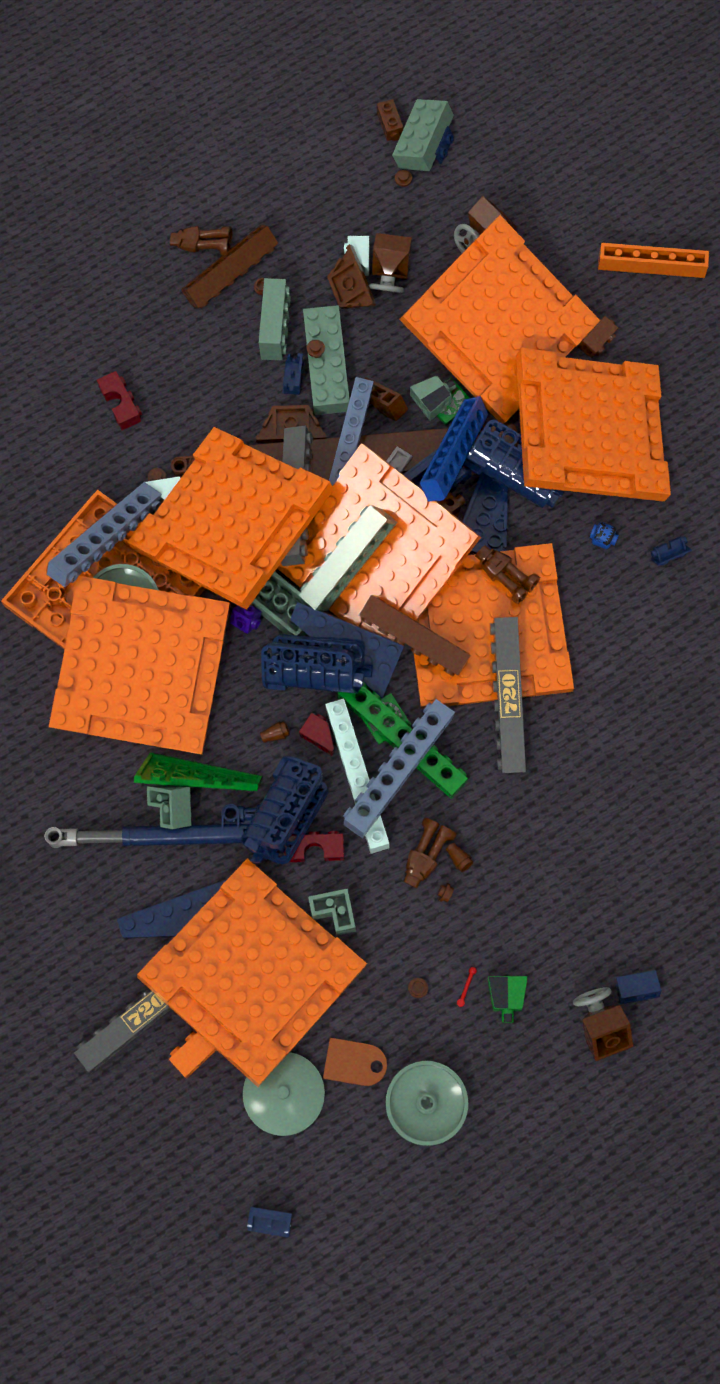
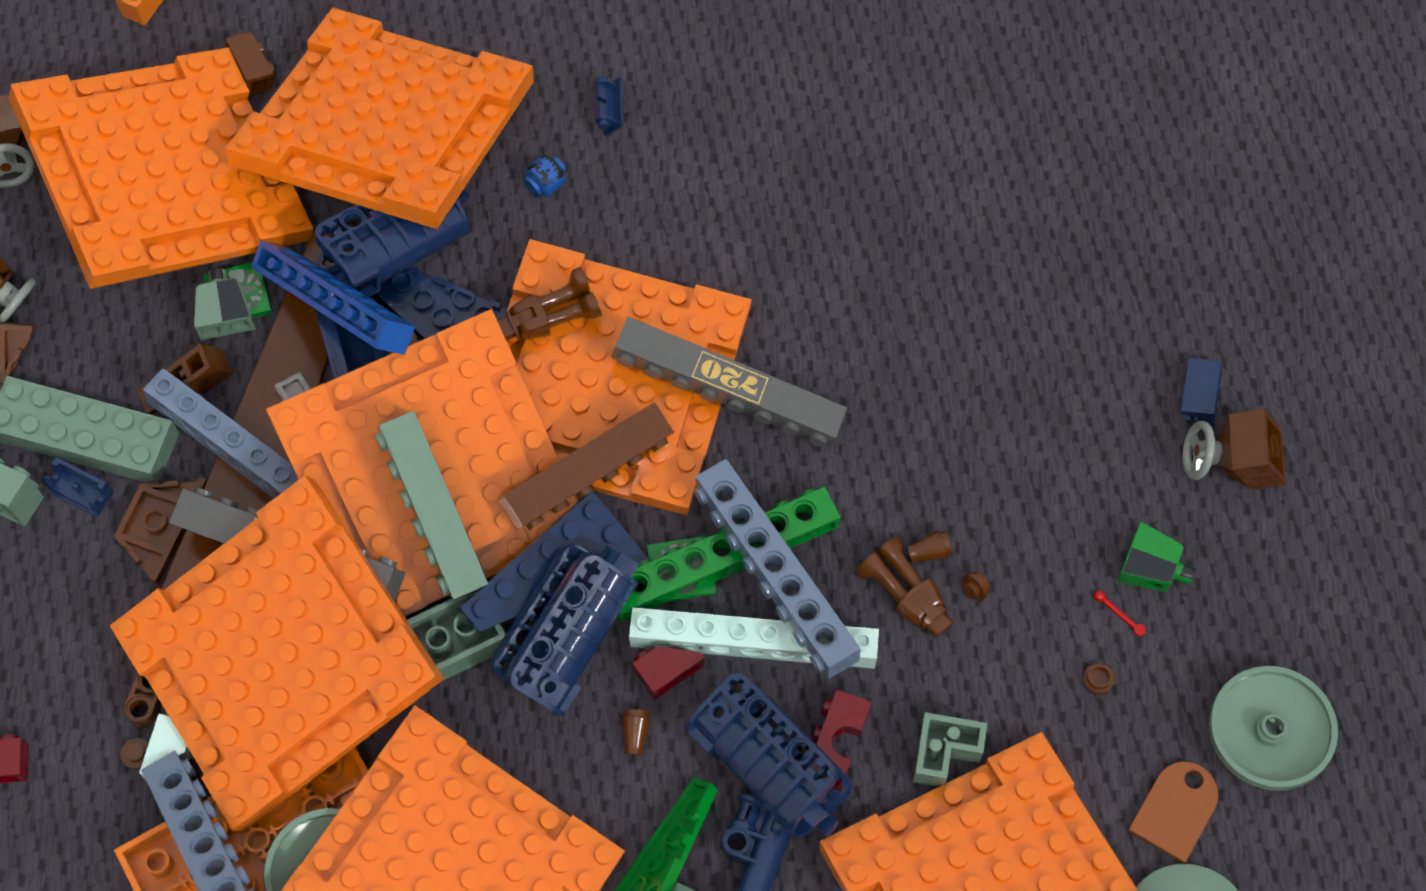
camera: 70 degrees left, 5 degrees down
(245, 619) = (441, 702): dark purple brick -> none
(315, 348) = (62, 431): reddish brown plate -> none

